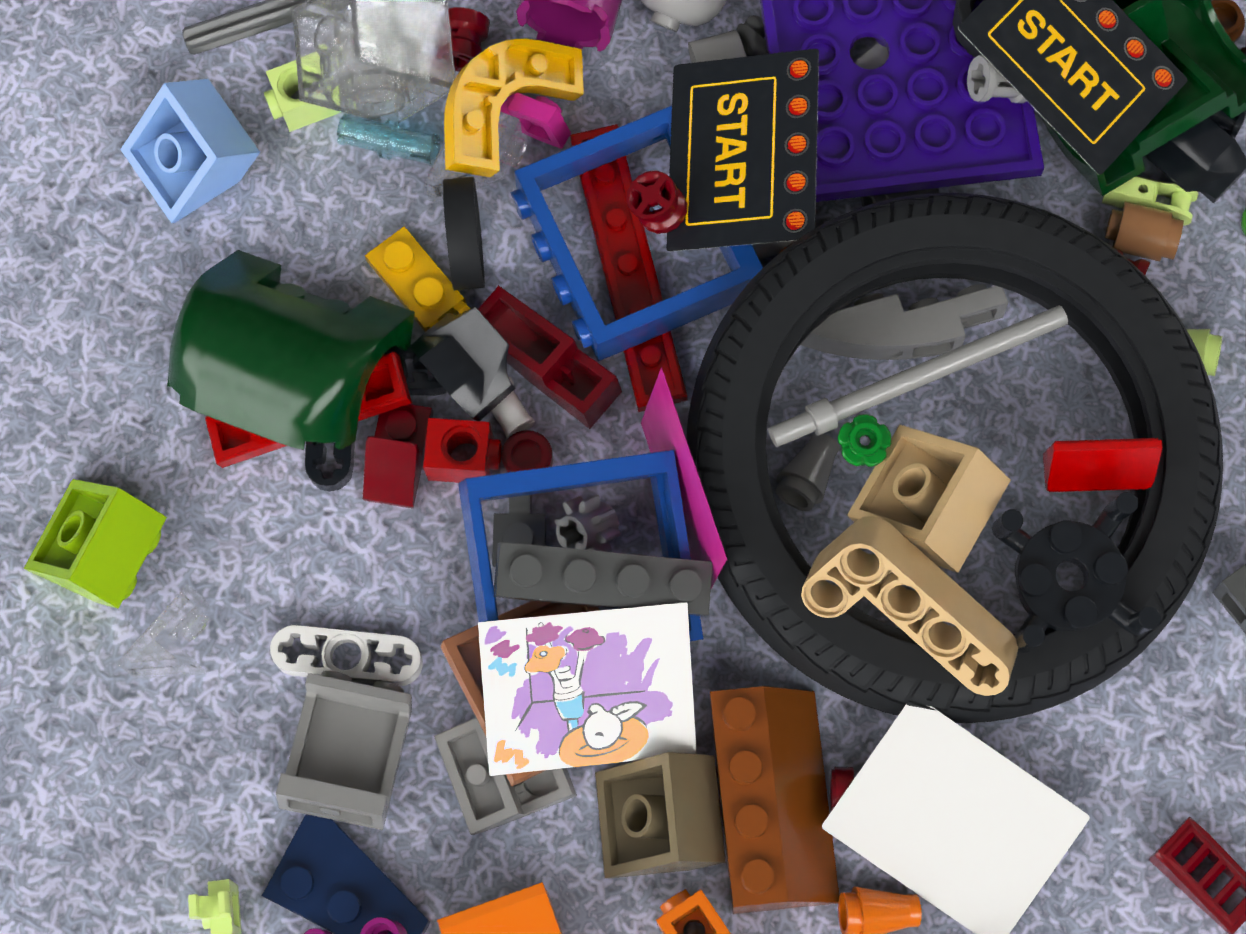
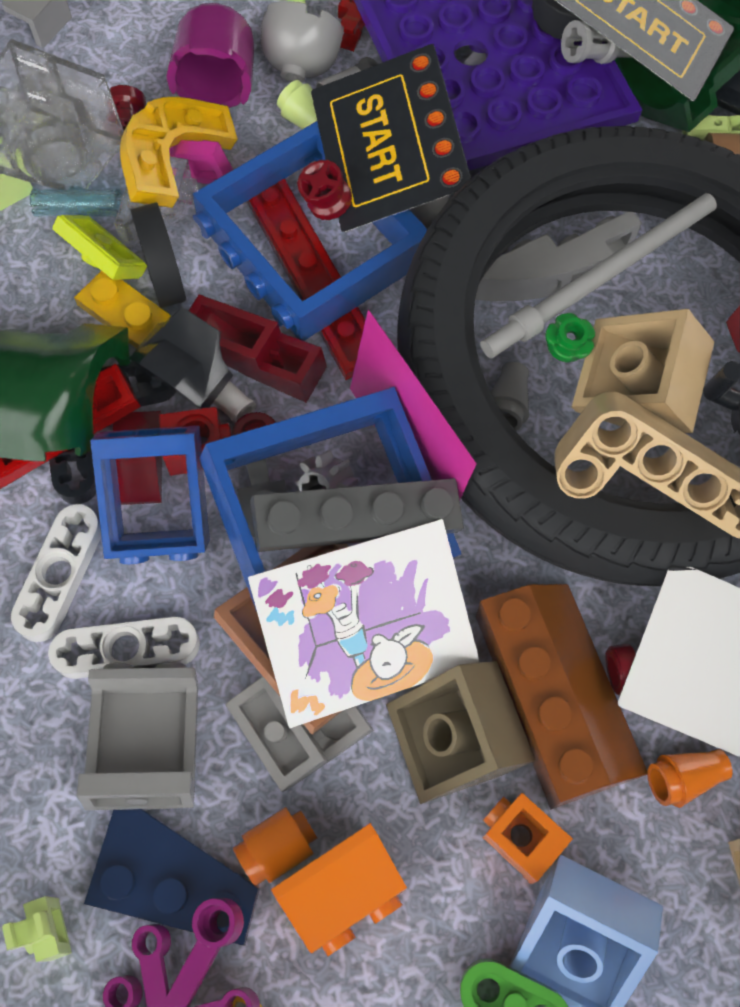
camera: 20 degrees left, 5 degrees down
(262, 587) = (56, 610): none -> white beam
(403, 201) = (99, 247): none -> neon yellow plate
(406, 454) = (137, 547): none -> blue window
(453, 884) = (275, 846): none -> orange brick
(658, 64) = (297, 104): none -> yellowish green cone

